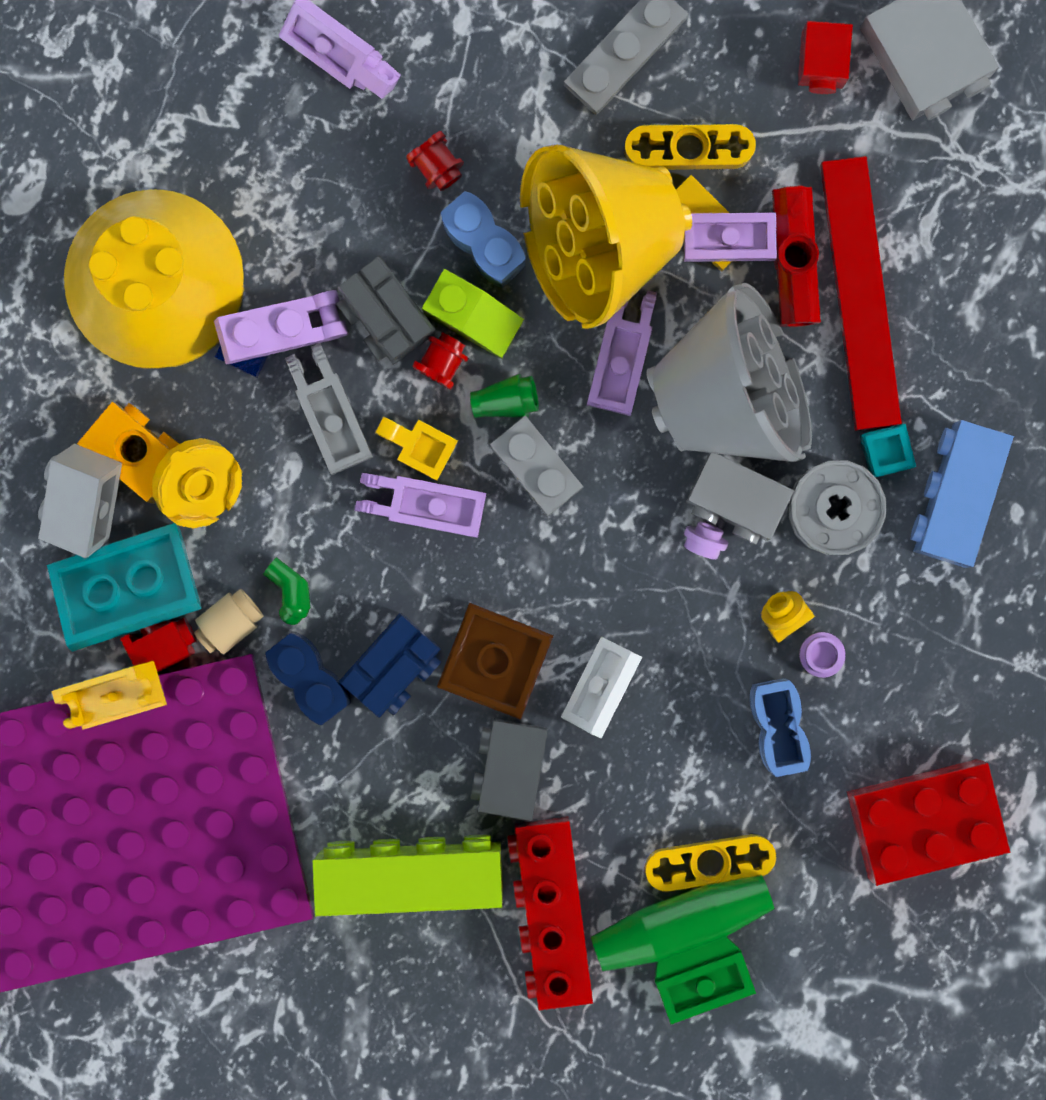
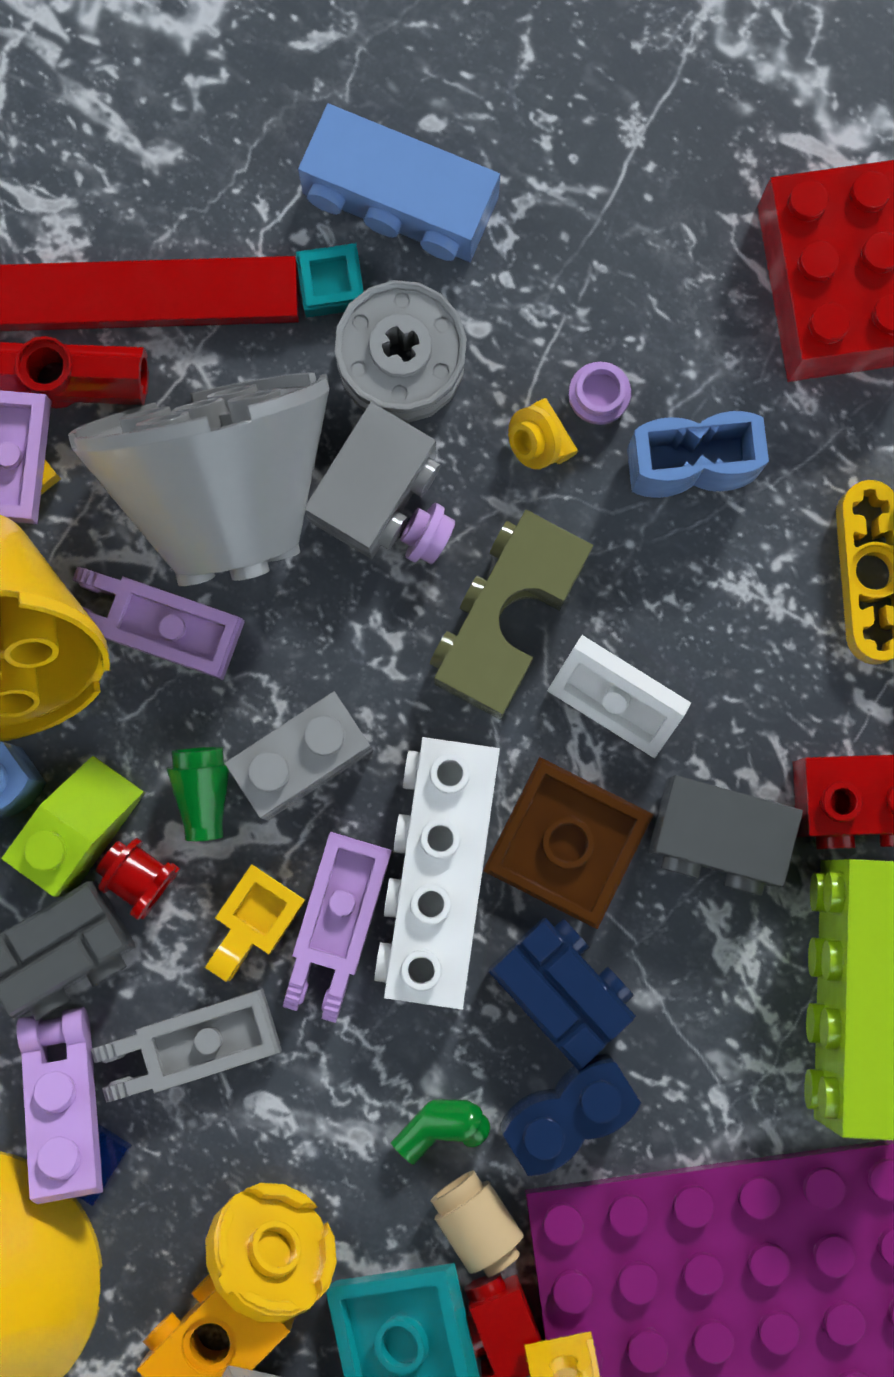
camera: 85 degrees left, 5 degrees down
(465, 573) = (440, 873): none -> white brick
(691, 616) = (532, 563): none -> olive arch

